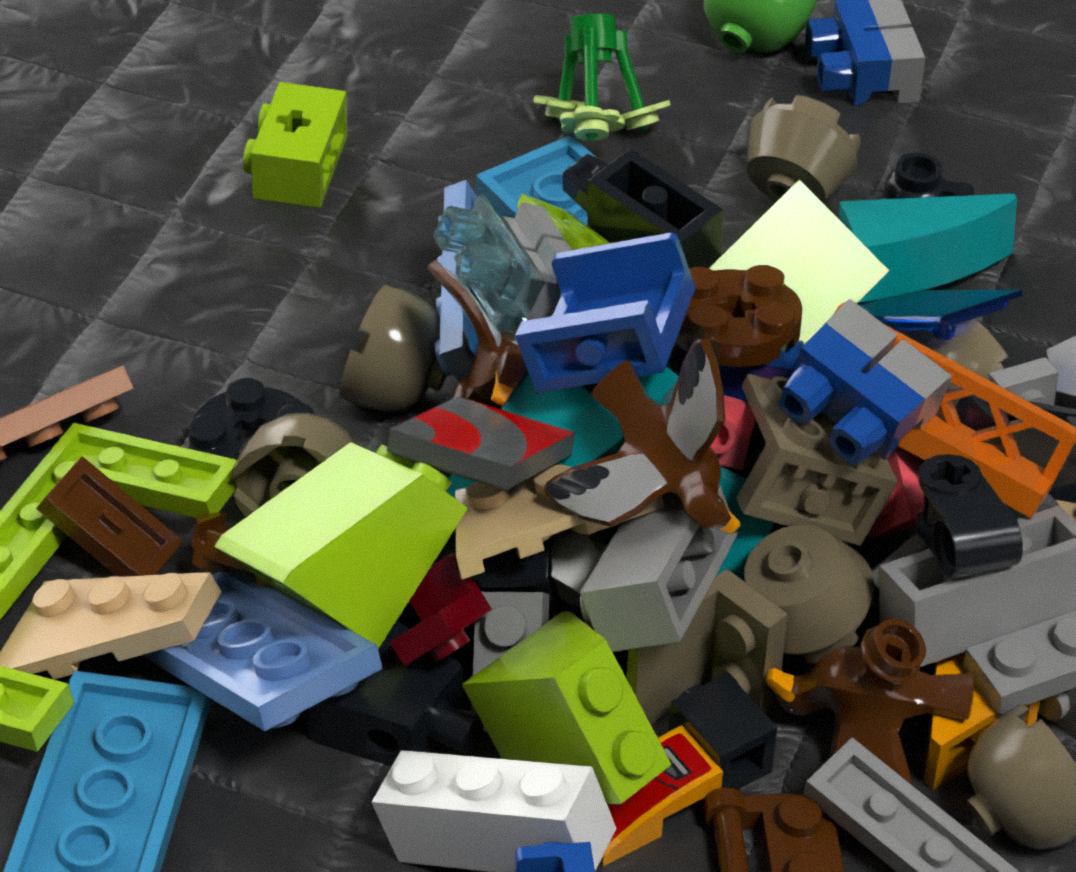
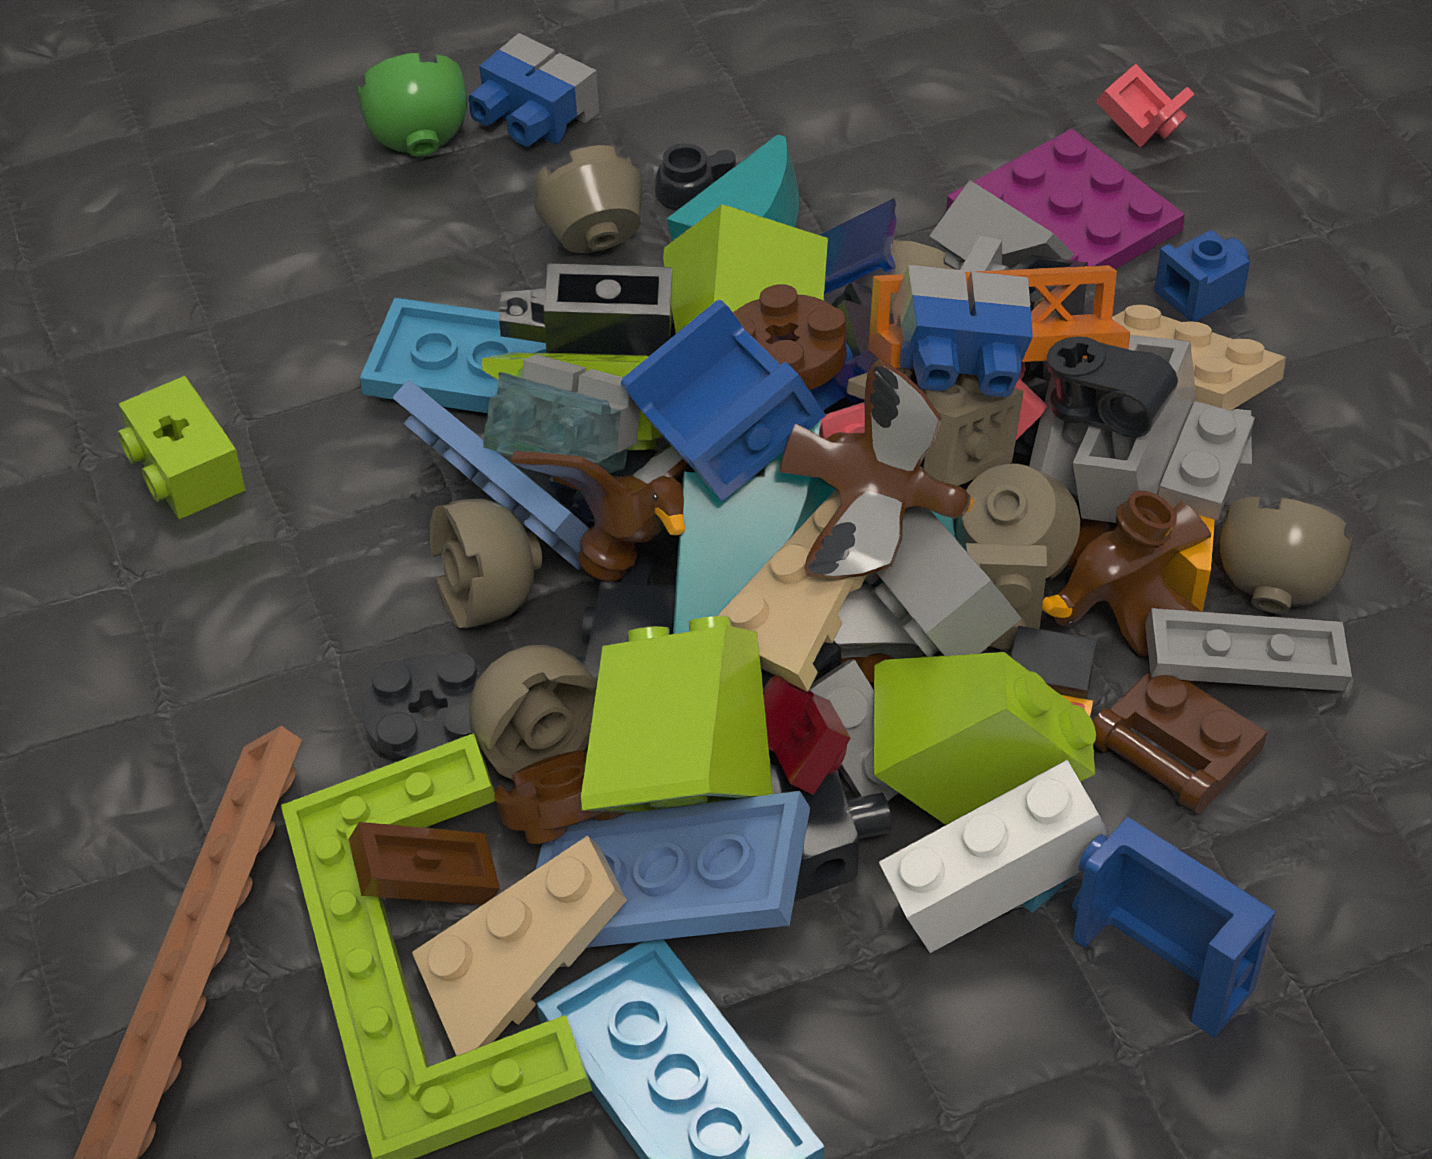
camera: 40 degrees left, 5 degrees up
(480, 443) = (717, 572): dark grey tile -> none
(592, 42) = (357, 205): green plant -> none

